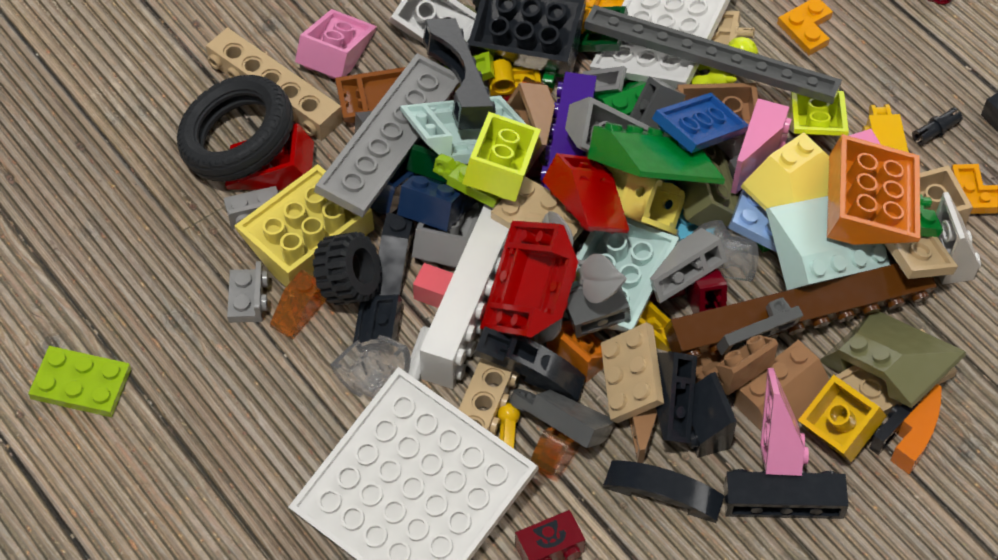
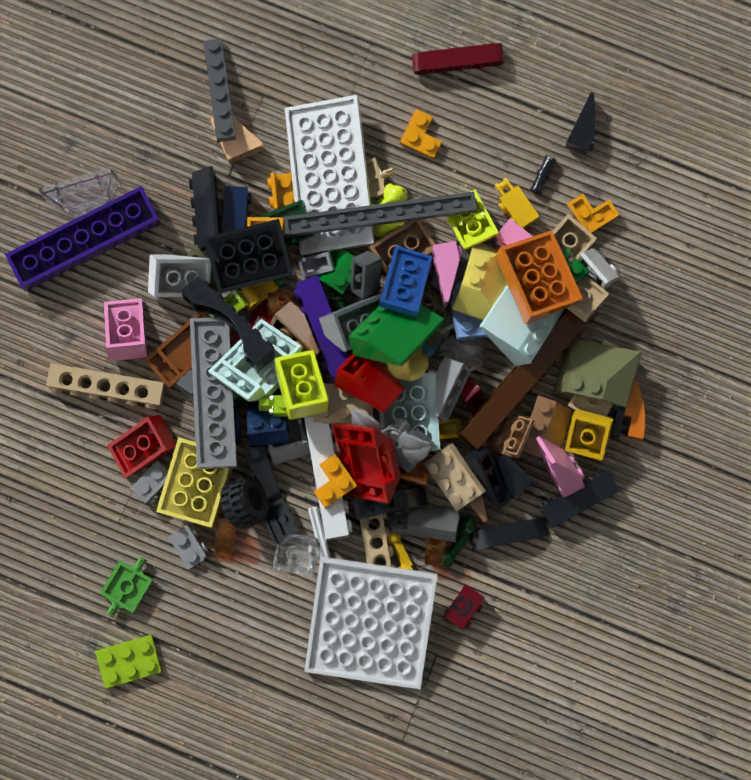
camera: 25 degrees left, 25 degrees up
(140, 296) = (126, 586): none -> bright green plate
(253, 153) = (78, 443): black tyre -> none
(431, 285) = (300, 477): coral brick -> none
(477, 296) = (339, 483): none -> light orange plate
(606, 452) = (466, 527): none -> dark green piece
(780, 318) = (524, 395): dark grey hinge -> none

